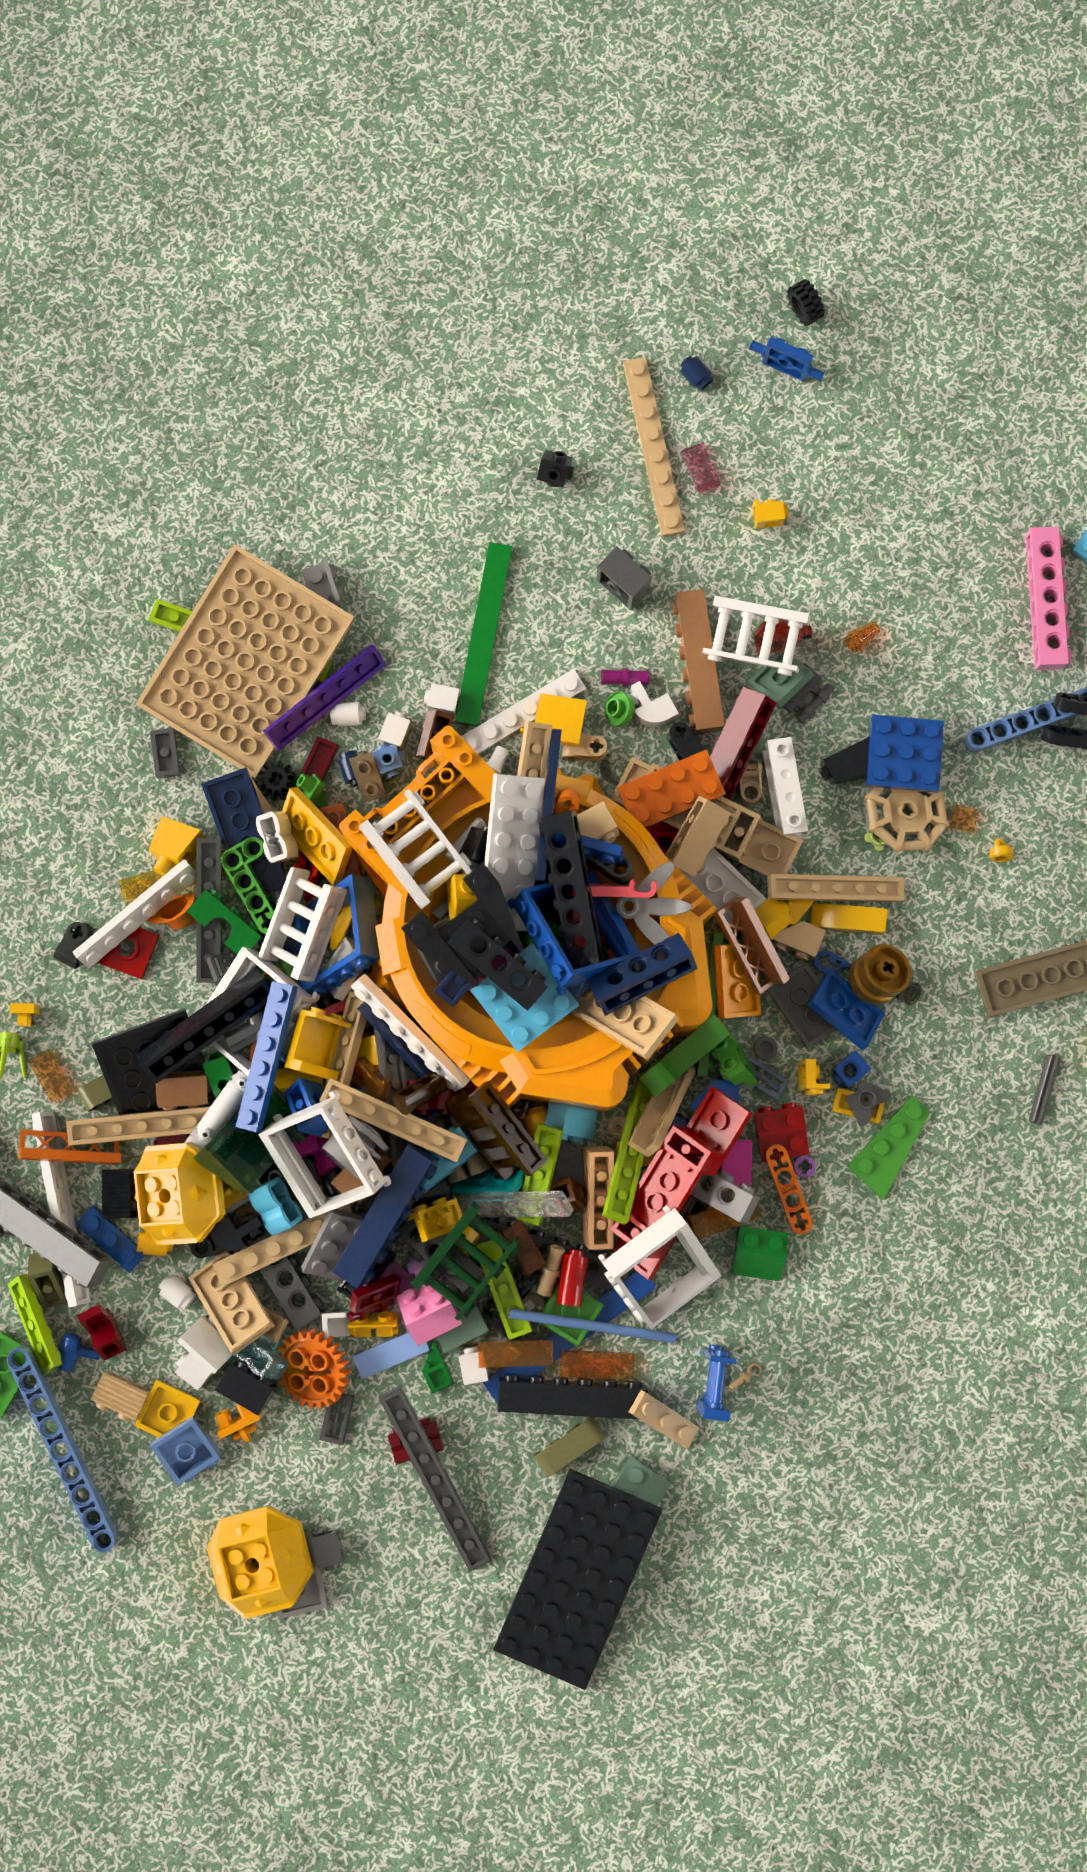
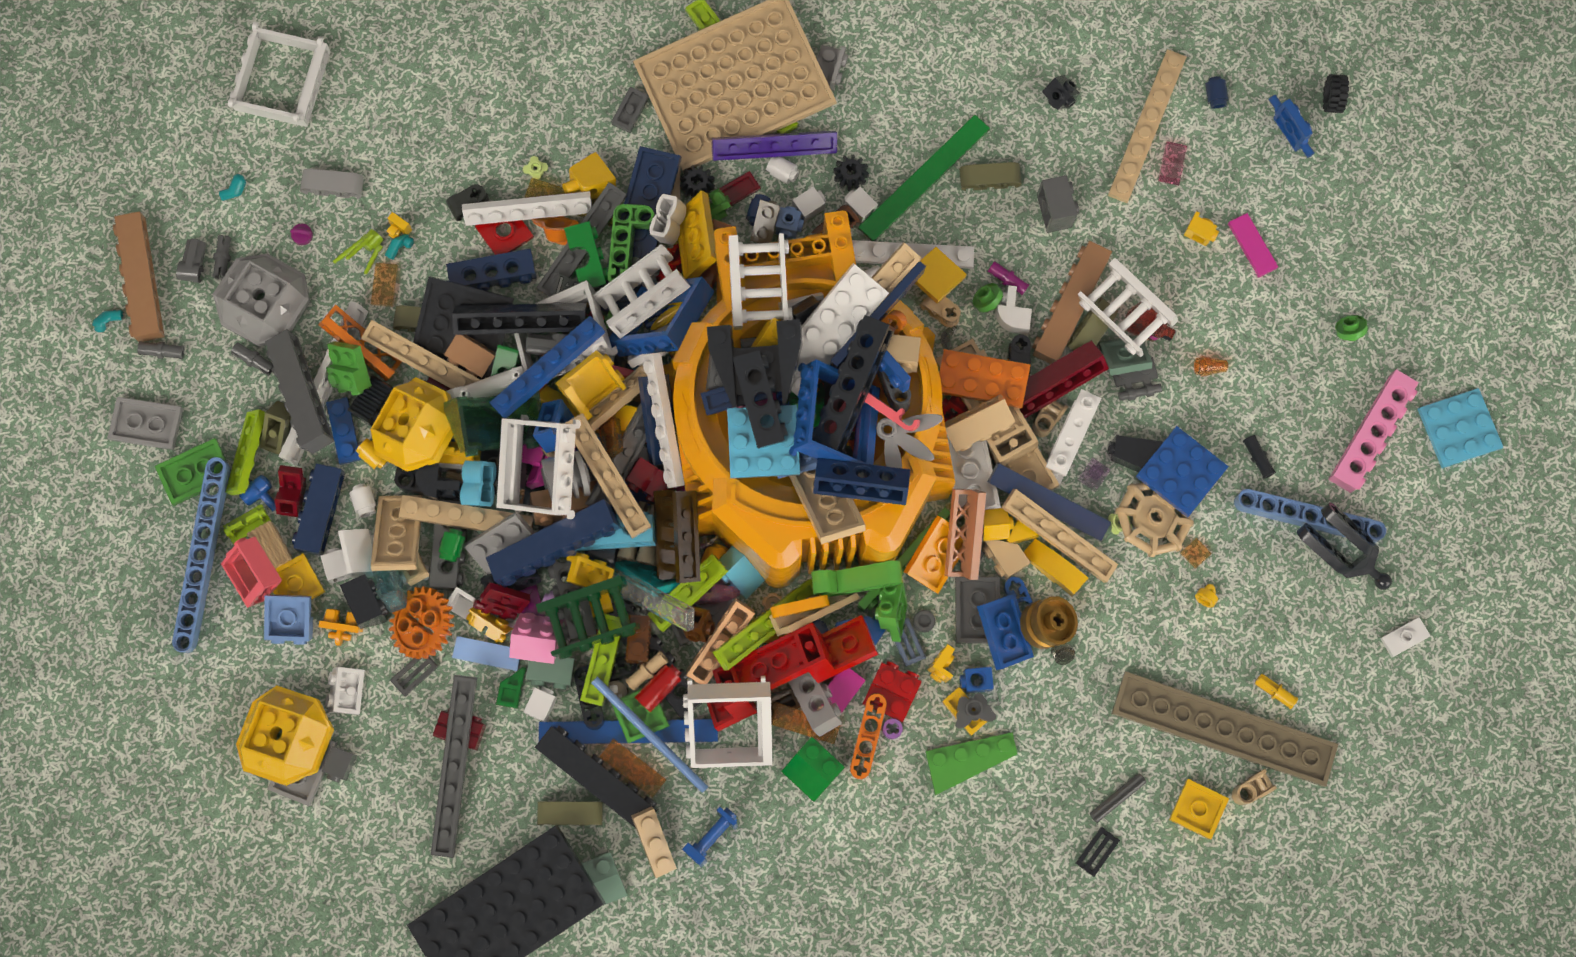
camera: 30 degrees right, 5 degrees down
(36, 1027) = (397, 243): none -> teal arm
(75, 1181) = (348, 368): none -> bright green plate
(82, 1388) = (246, 523): none -> lime hinge
(110, 864) = (534, 162): none -> yellowish green plate
(120, 1431) = (242, 577): none -> coral window
(141, 1329) = (319, 509): none -> dark blue brick
(167, 964) = (501, 263): none -> dark blue brick
(285, 1478) = (345, 690): none -> white bracket
(290, 1279) = (451, 545): none -> green brick
(419, 1093) = (640, 468): dark brown brick -> none
(421, 670) = (850, 180): none -> black gear
(515, 1353) = (577, 714): clear orange tile -> none
(543, 590) = (990, 175): none -> olive beam
(568, 1153) = (719, 594): none -> clear pink slope
(650, 1117) = (799, 606): none -> light orange beam
(732, 675) = (1091, 327): none -> olive beam
(744, 1377) = (736, 855): tan hand -> none
(805, 862) = (1050, 501): none -> dark blue tile
(824, 496) = (1253, 245): none -> dark pink tile
(826, 809) = (1093, 474): none -> brick
(961, 691) = (1259, 456): none -> black pin
(964, 515) = (1351, 327): none -> bright green plate
(1059, 1144) = (1108, 836): none -> black tile

